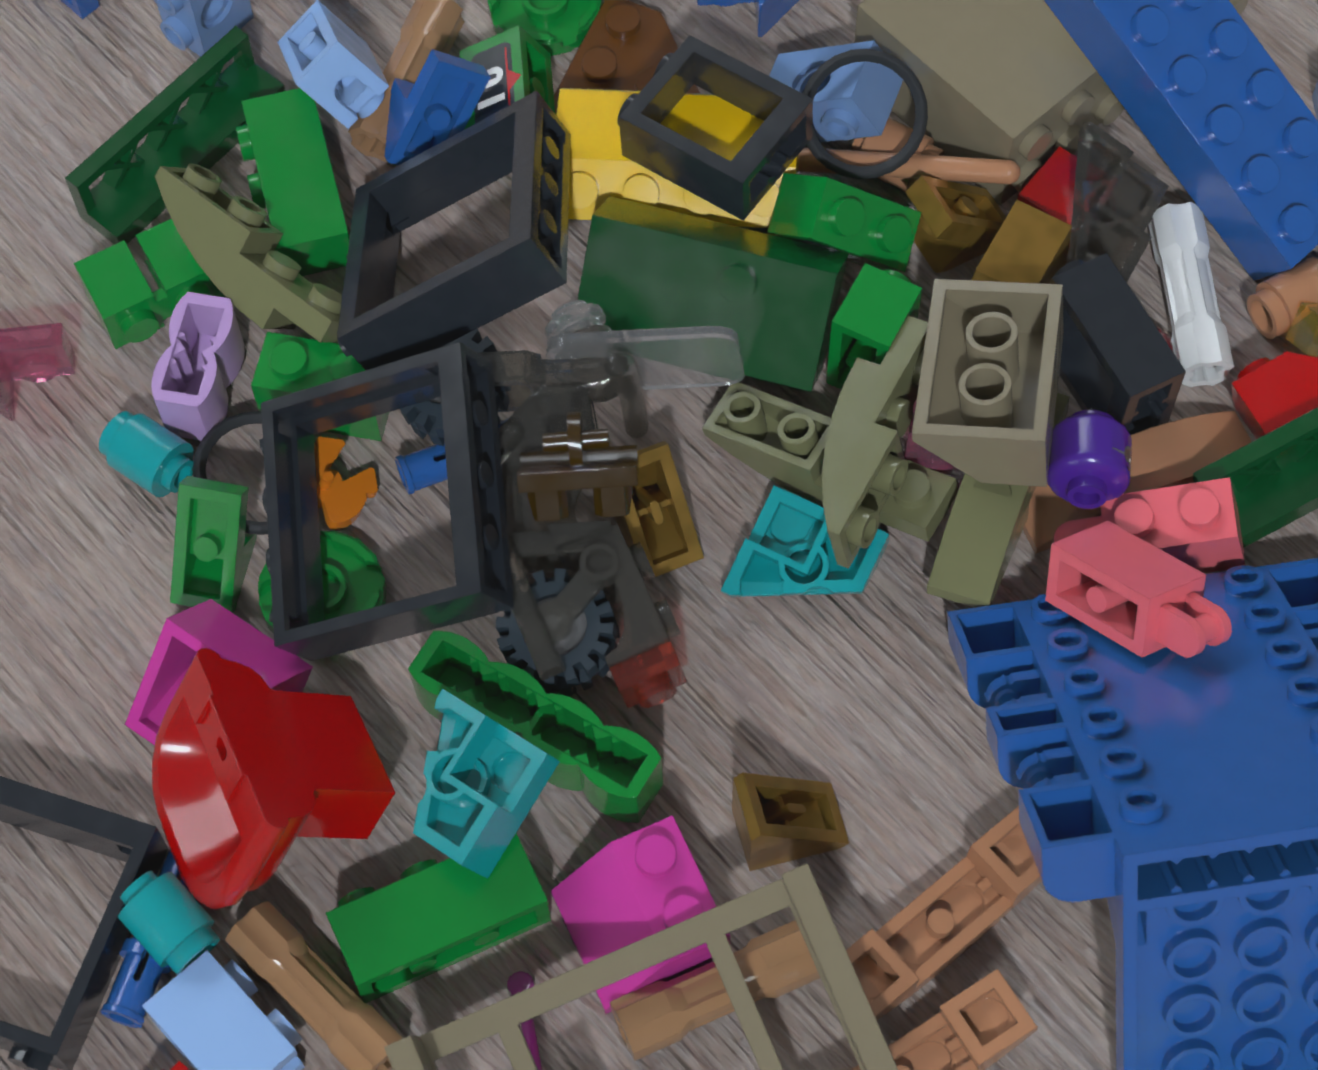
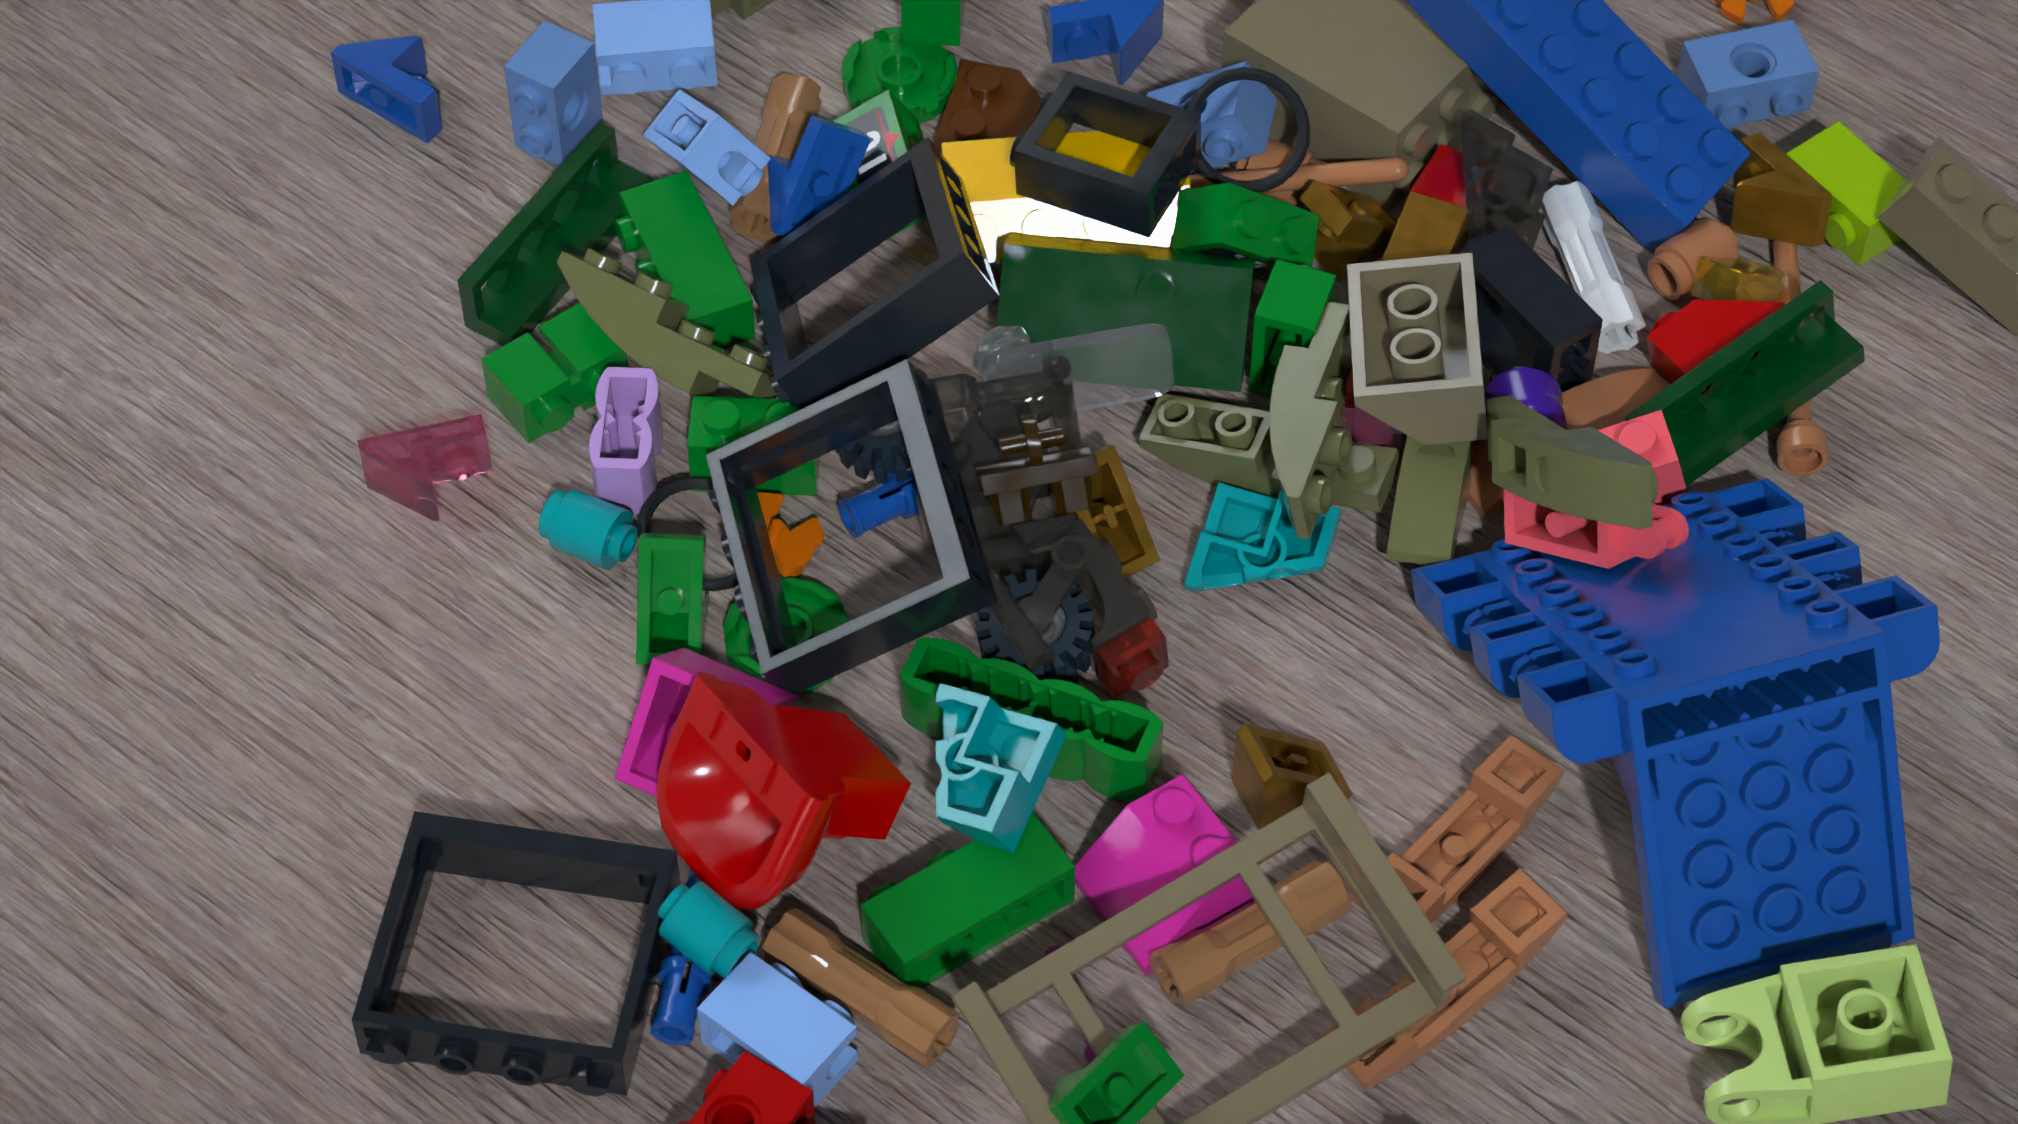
camera: 10 degrees left, 10 degrees down
(1114, 551) = (1568, 469): none -> olive slope

